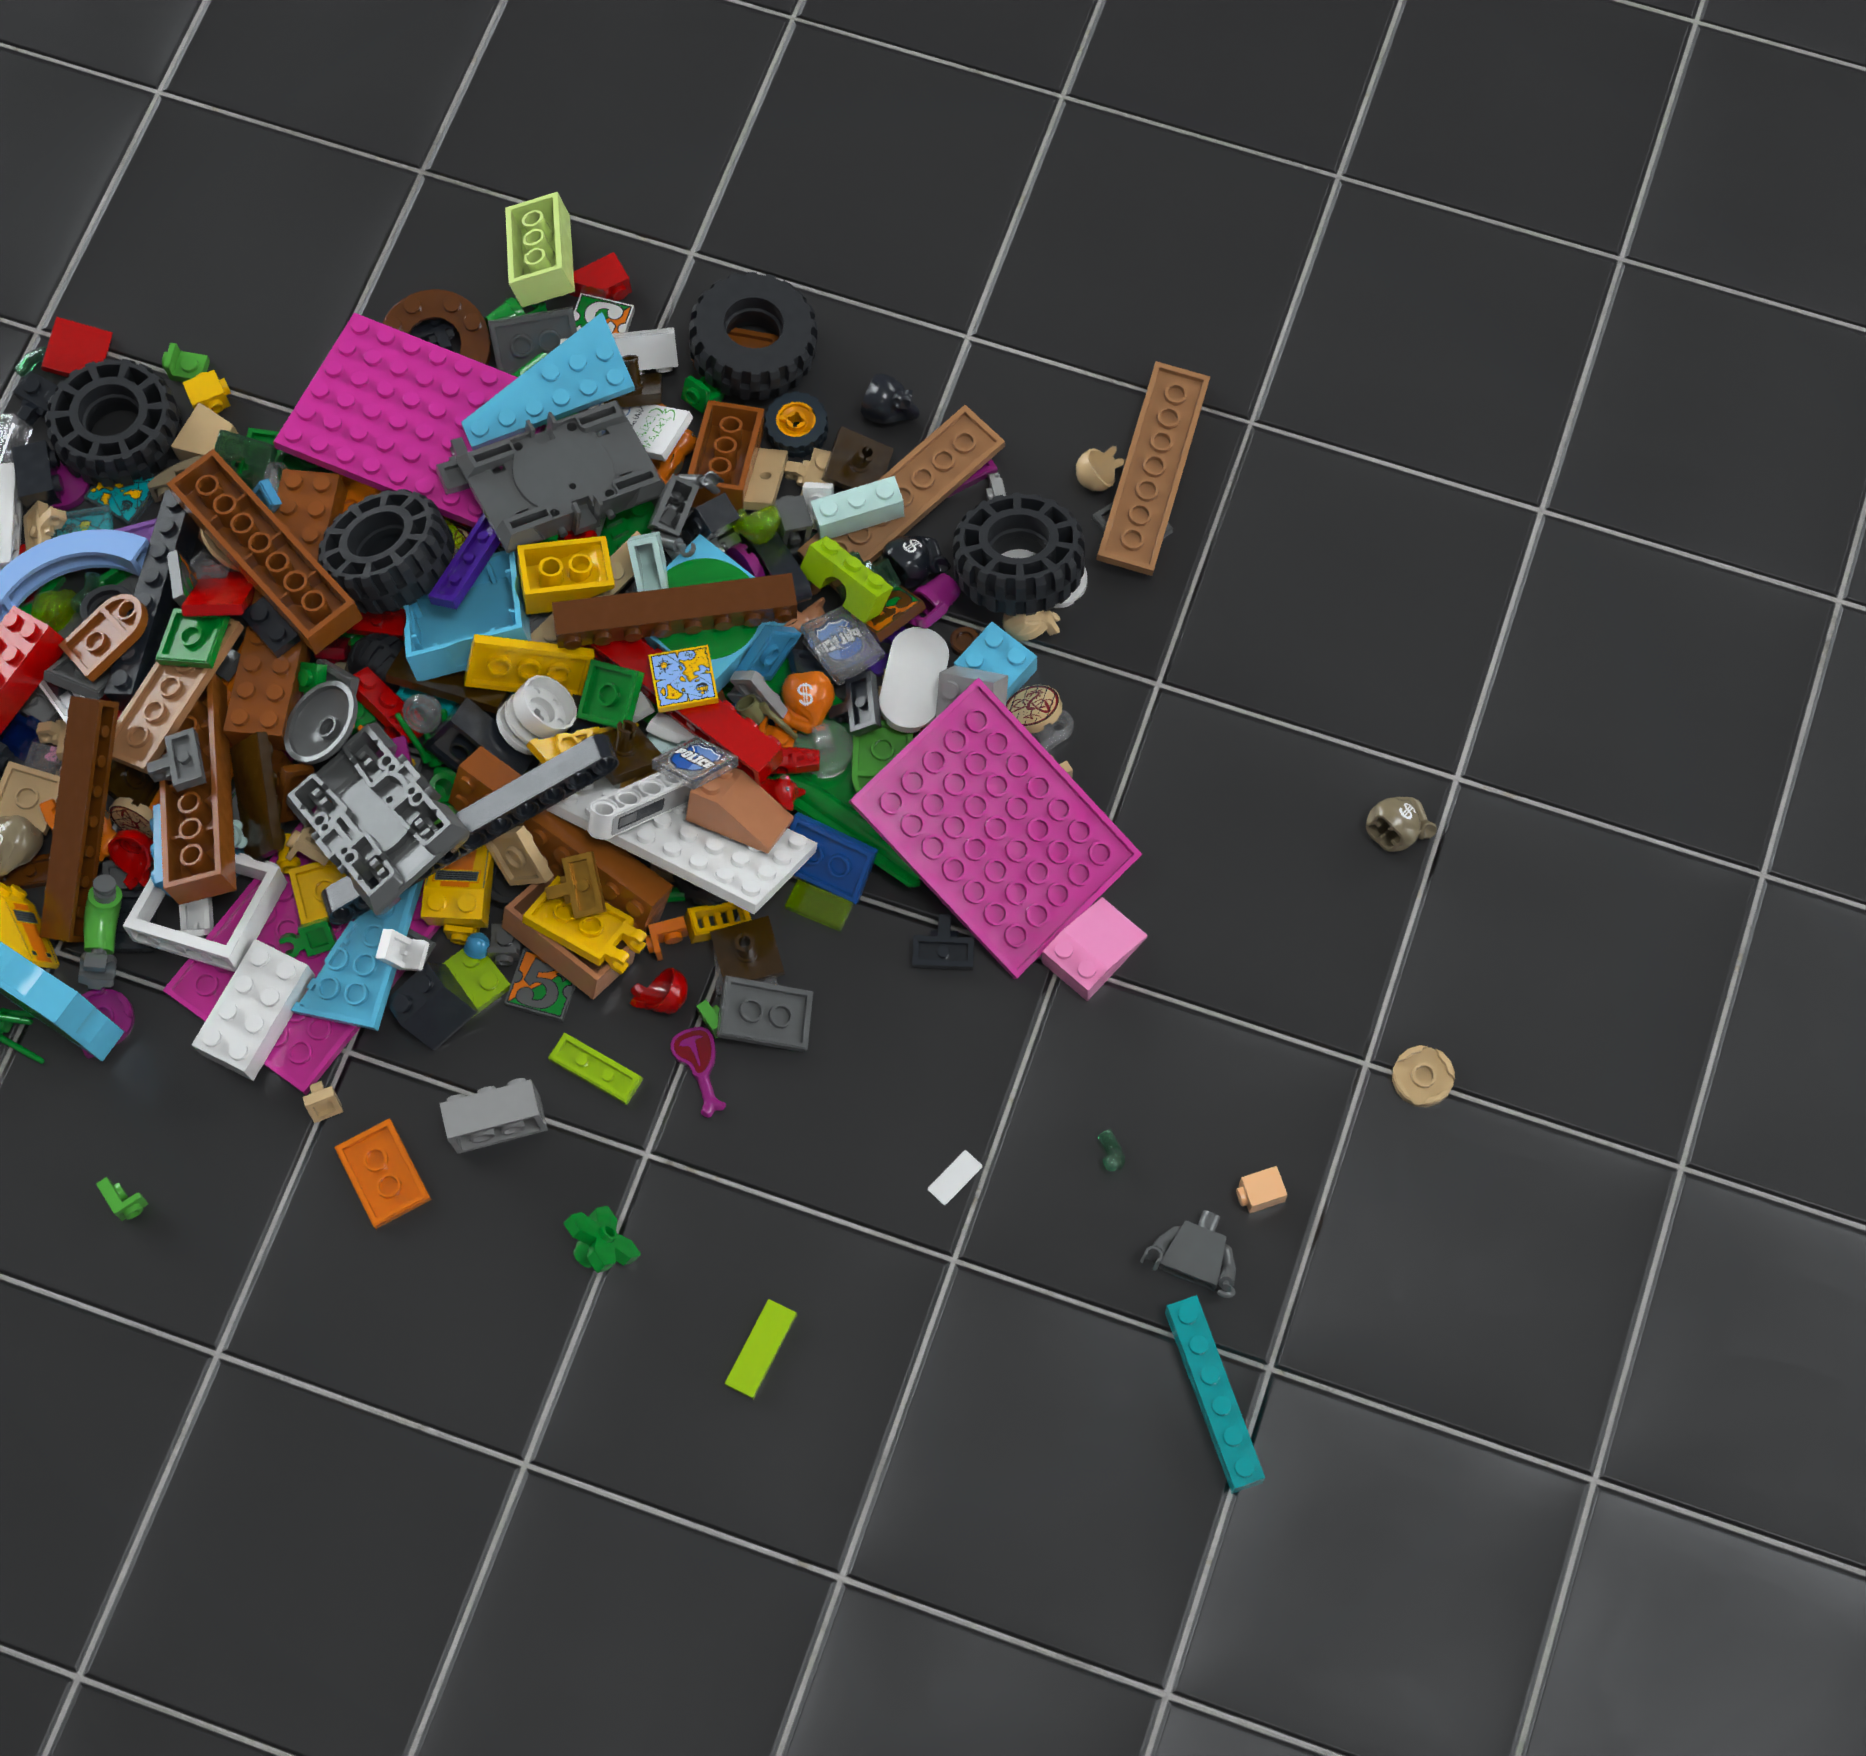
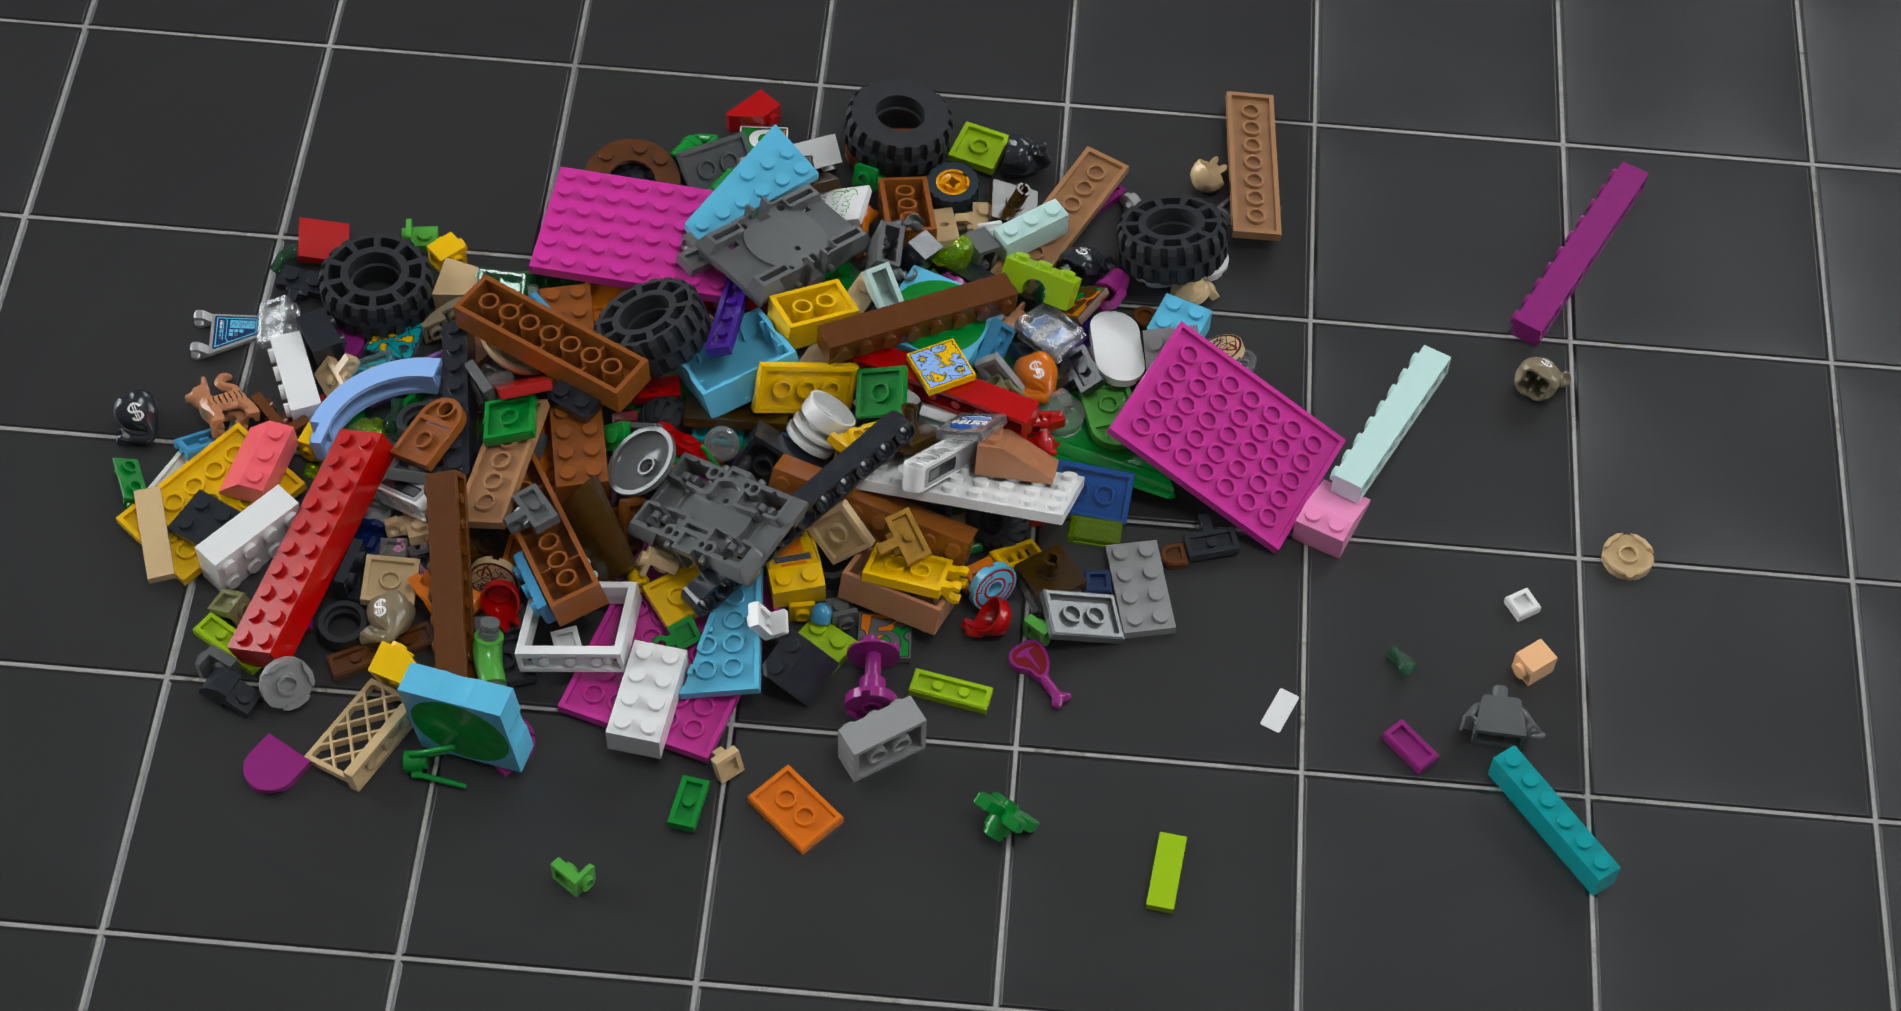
camera: 20 degrees left, 15 degrees down
(268, 1141) = (688, 804): none -> green plate
(500, 1058) = (872, 690): none -> magenta piece
(539, 249) = (701, 95): yellowish green brick -> none
(677, 952) = (1000, 575): none -> medium azure tile
(801, 971) = (1098, 581): none -> dark blue tile
(842, 377) = (978, 148): none -> lime plate
(846, 989) = (1140, 589): none -> light grey plate
(898, 957) = (1174, 556): none -> reddish brown tile
(1086, 1259) = (1410, 746): none -> magenta tile
(1198, 846) = (1390, 424): none -> light aqua brick
(1277, 1110) = (1522, 604): none -> white tile
(1504, 666) = (1579, 253): none -> magenta brick

